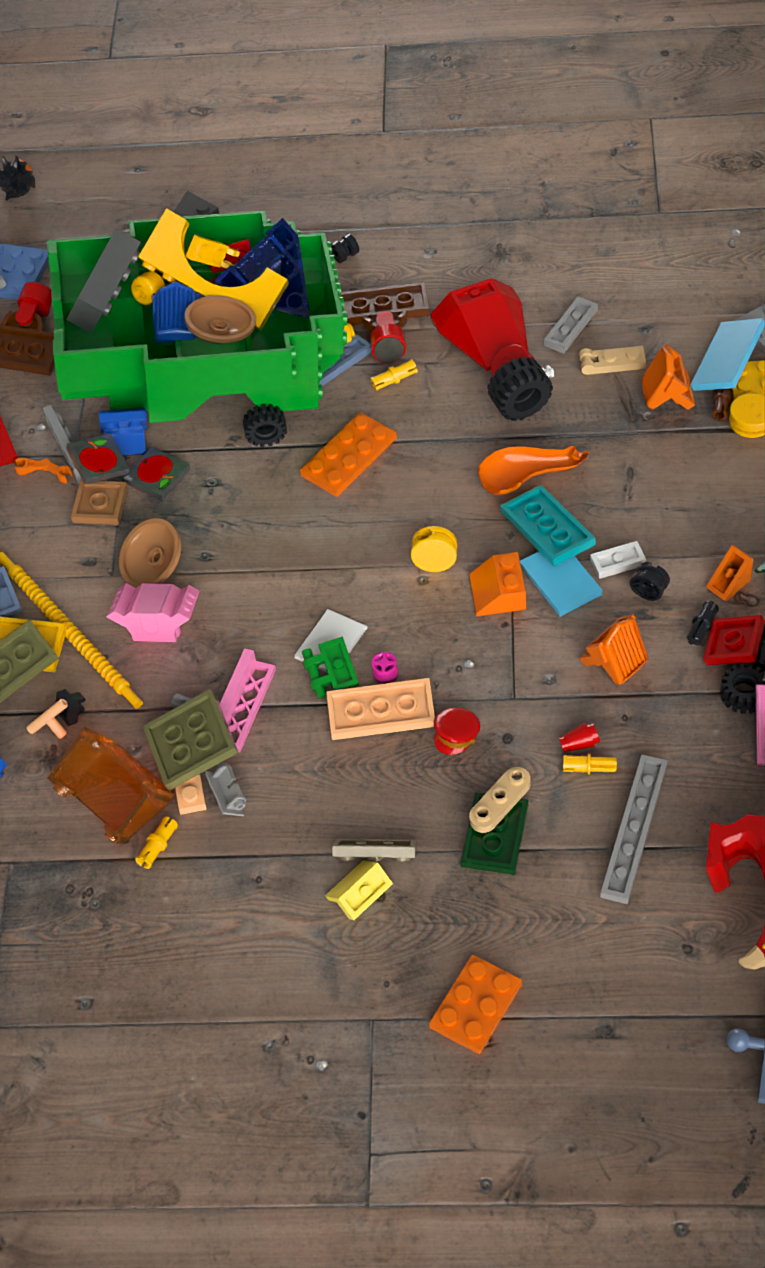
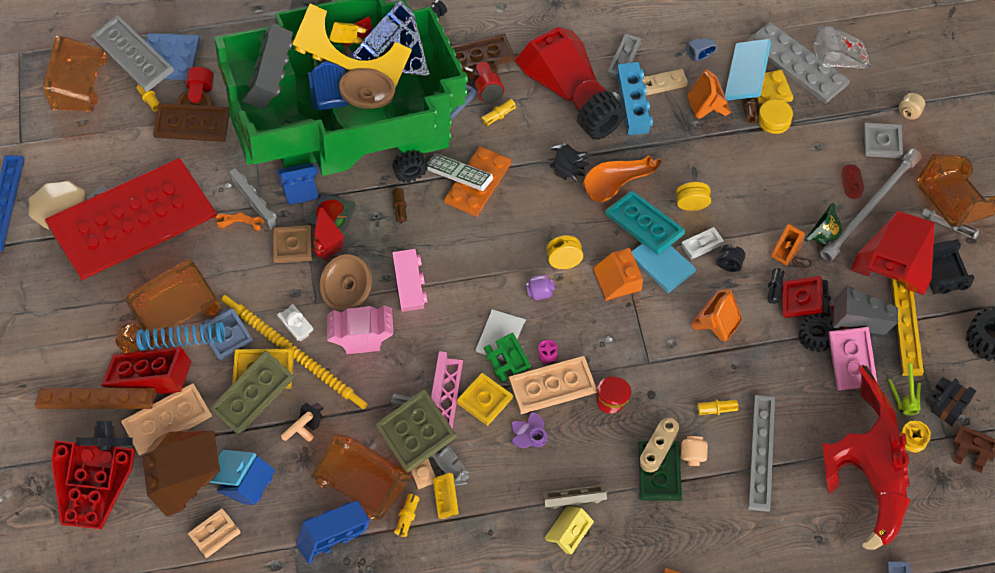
camera: 15 degrees left, 5 degrees up
(57, 843) = (330, 528): none -> blue wedge
(78, 595) = (295, 323): none -> white hips
(97, 458) = (284, 209): tile -> none
(138, 497) = (327, 237): none -> red slope
(145, 286) = (300, 66): yellow head -> none
(210, 825) = (445, 496): none -> yellow plate
(229, 559) = (409, 280): none -> bright pink wedge
(242, 471) = (399, 205): none -> reddish brown axle
(290, 715) = (484, 399): none -> yellow plate
(325, 439) = (459, 172): none -> white tile
(335, 762) = (527, 431): none -> medium lavender plate
(394, 588) = (540, 287): none -> medium lavender head
(466, 441) = (568, 162): none -> black hair
(544, 813) = (694, 450): none -> light nougat head
(565, 343) = (634, 123): none -> dark azure brick
(580, 738) = (706, 388): red cone -> none
(617, 499) = (693, 196): none -> yellow head
(673, 324) = (700, 48): none -> sand blue rock

